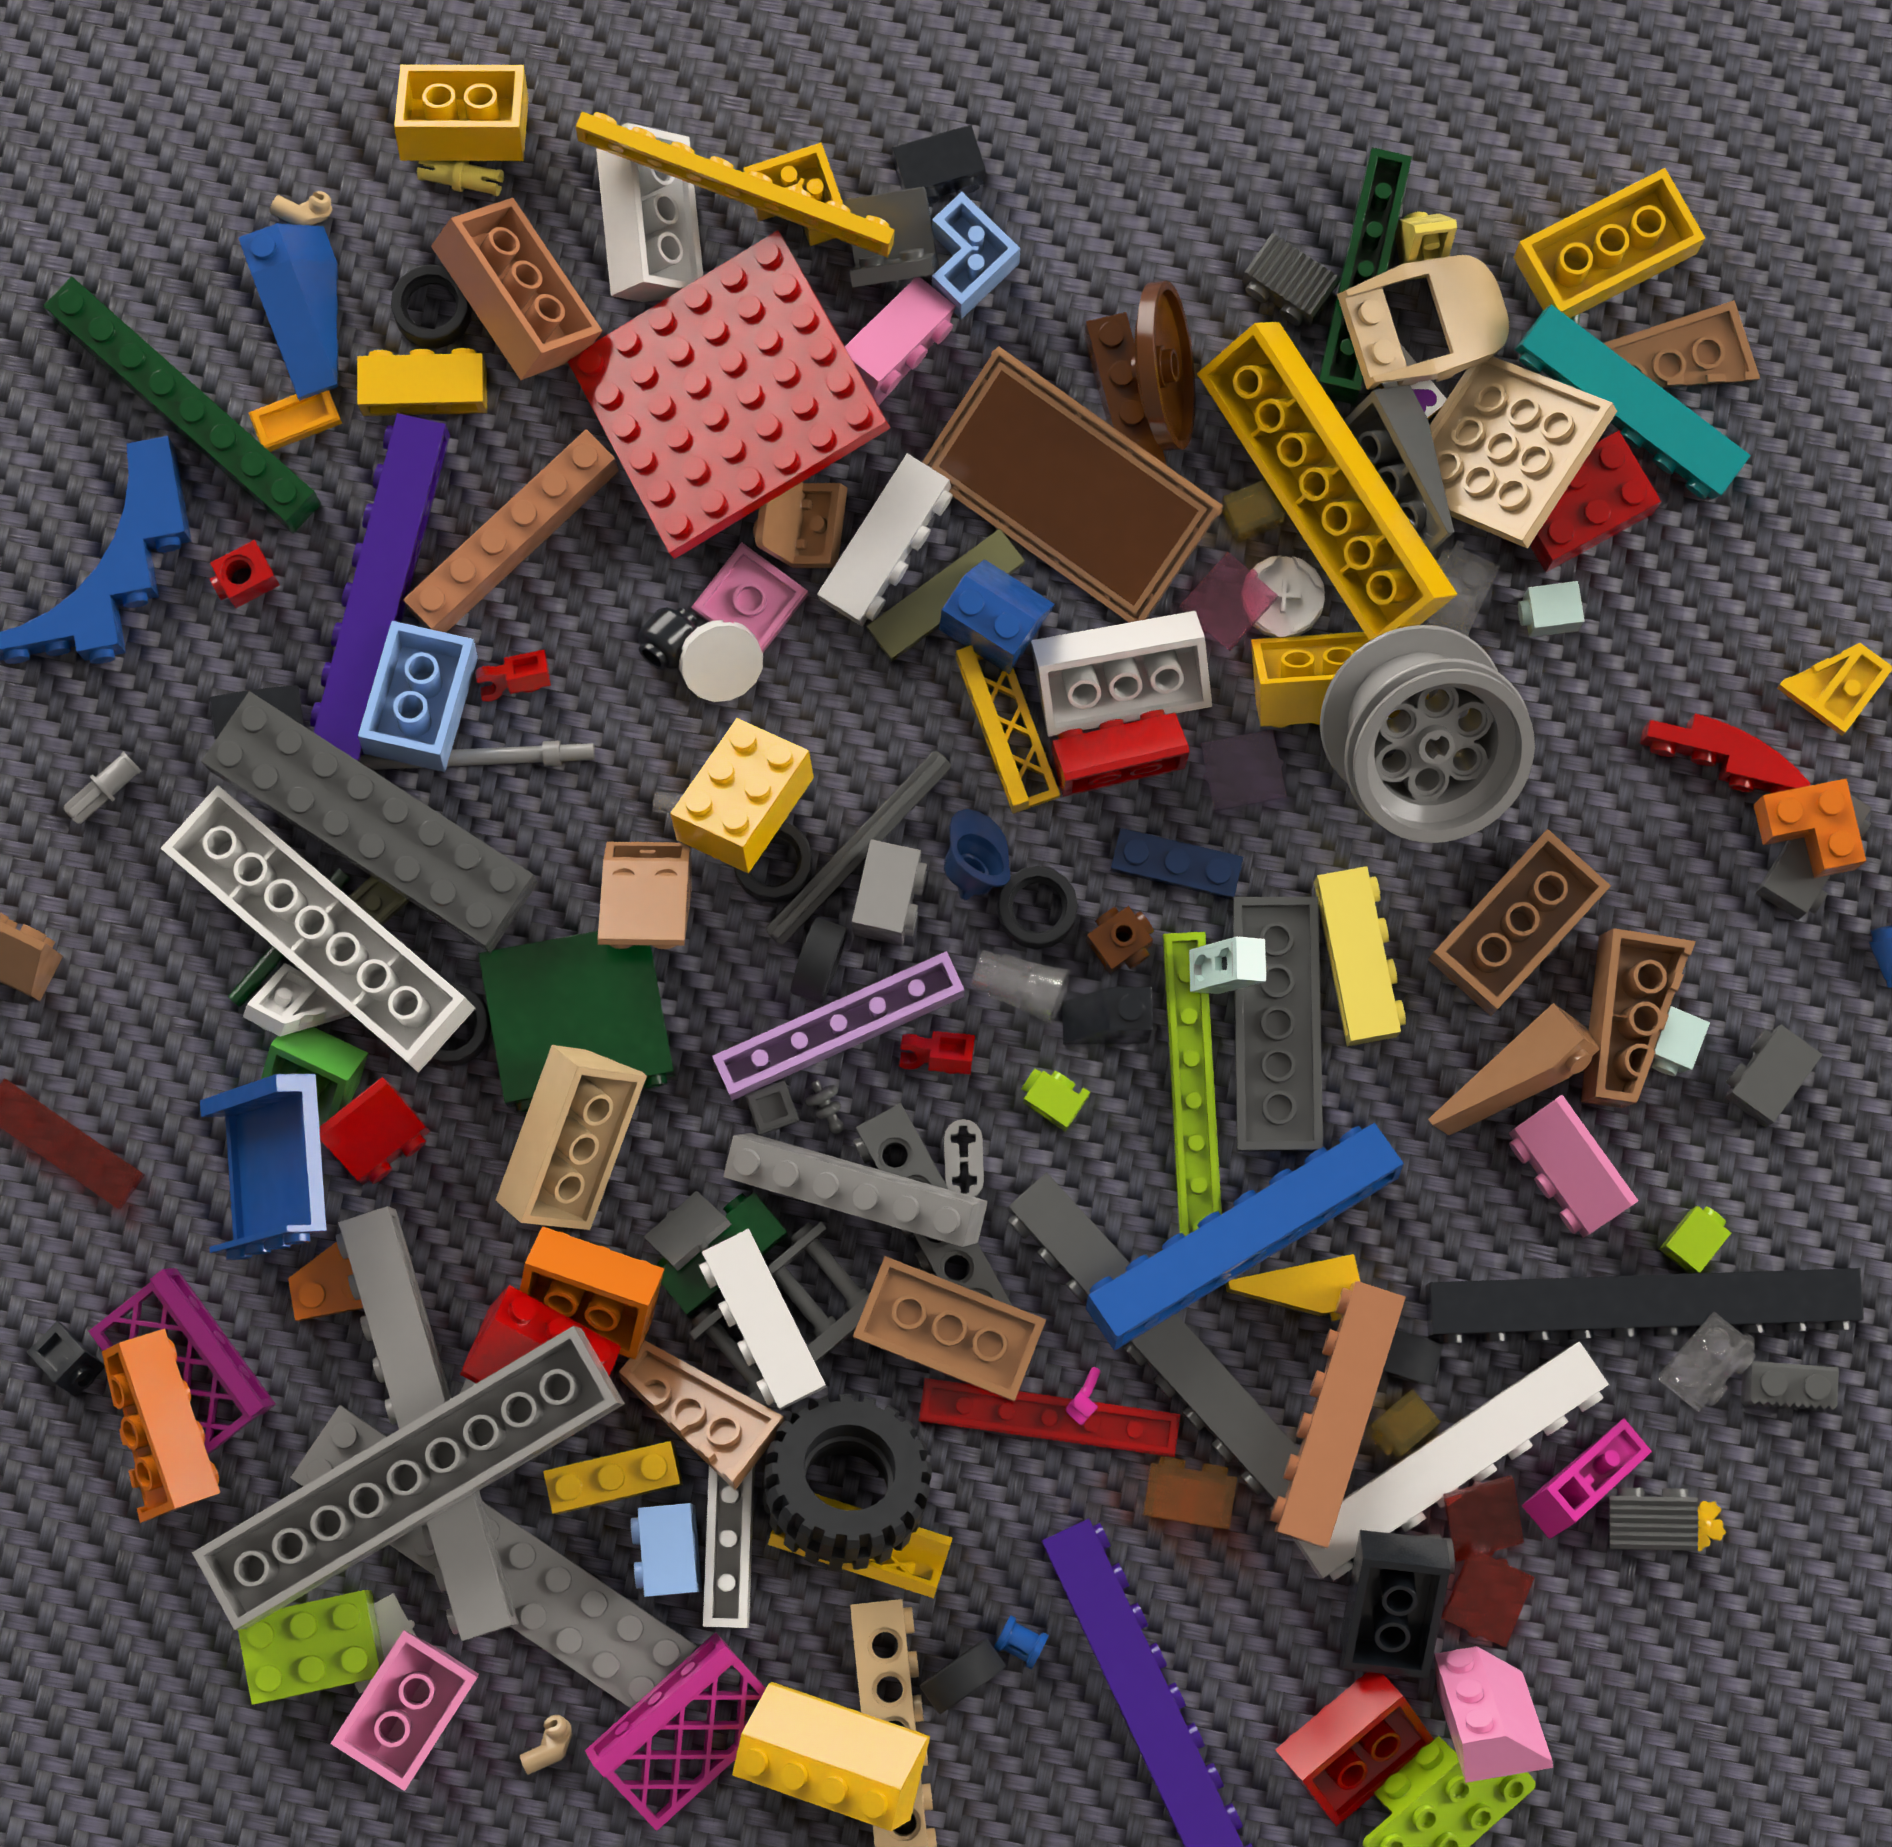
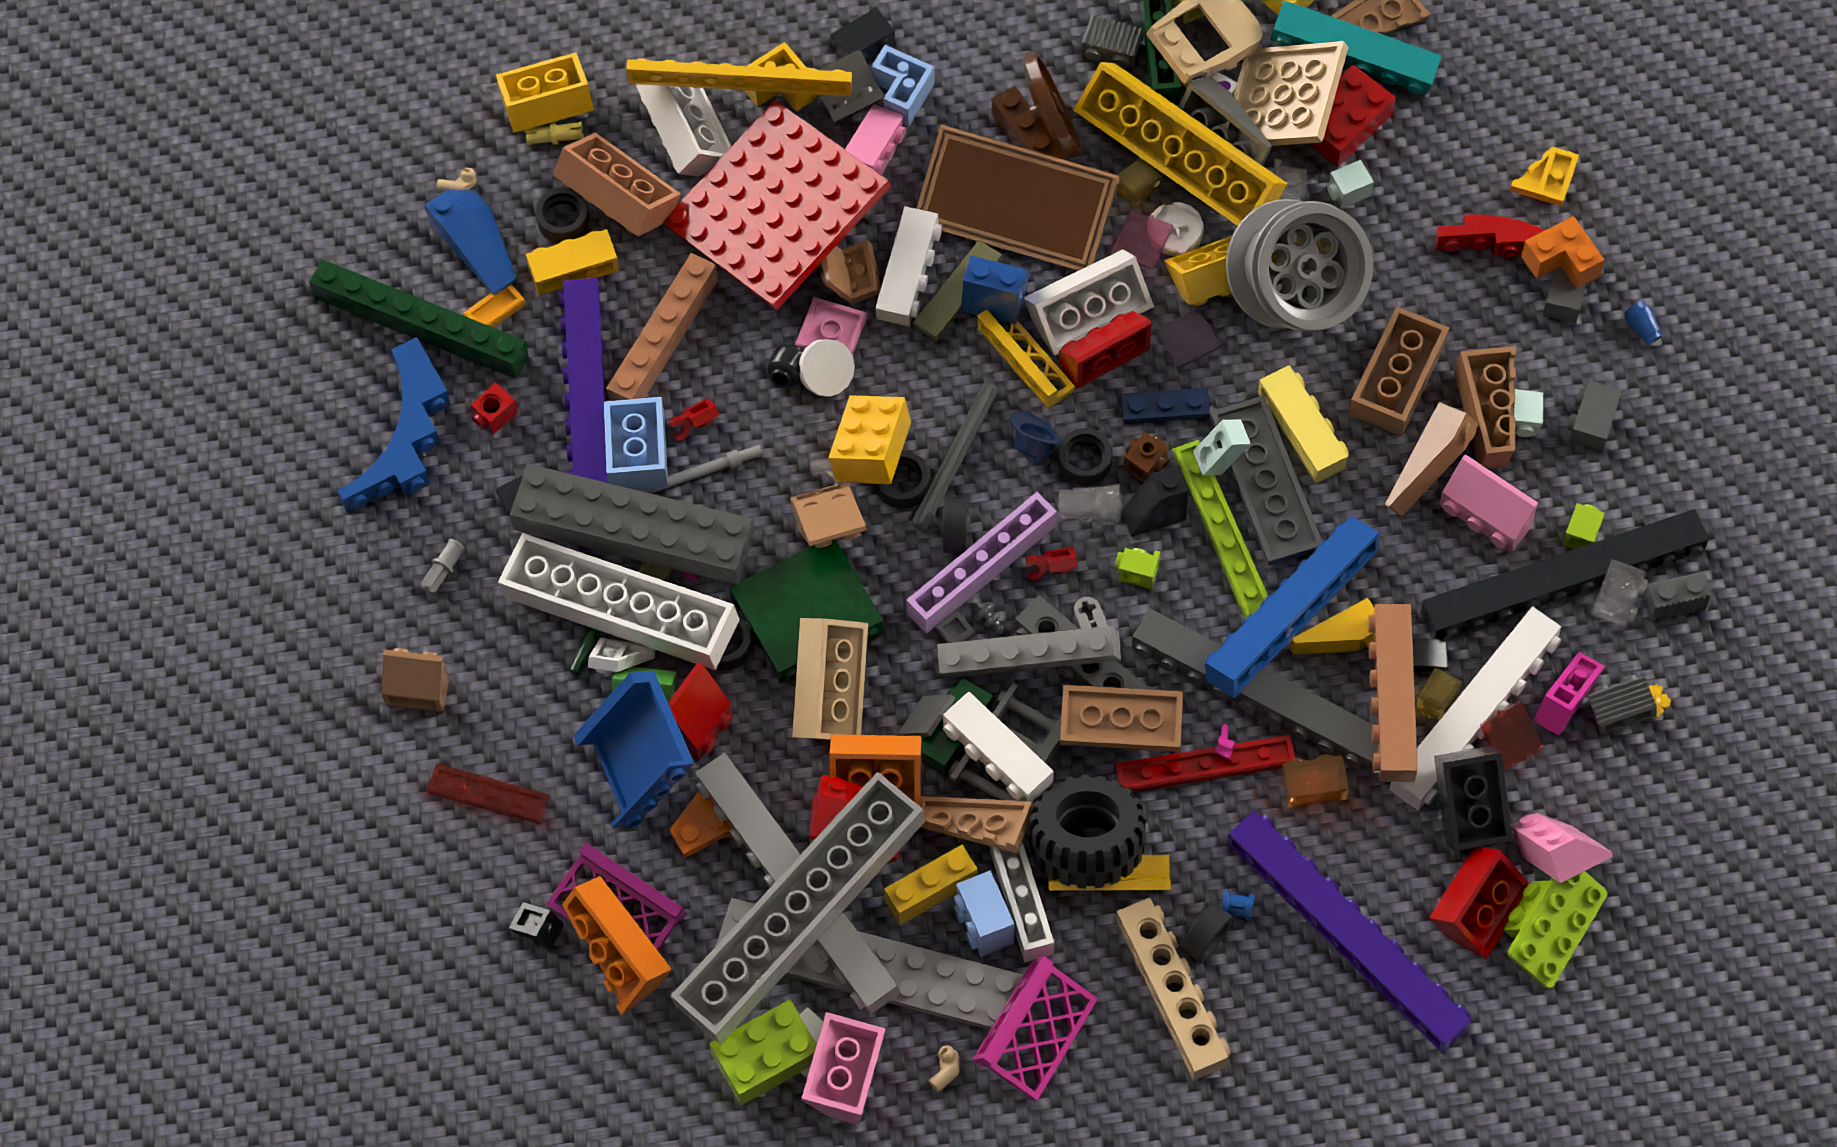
camera: 15 degrees left, 15 degrees down
(832, 1757) = (1139, 1004): yellow slope -> none
(887, 893) = (986, 471): light grey brick -> none
(1488, 1597) = (1532, 786): clear red piece -> none

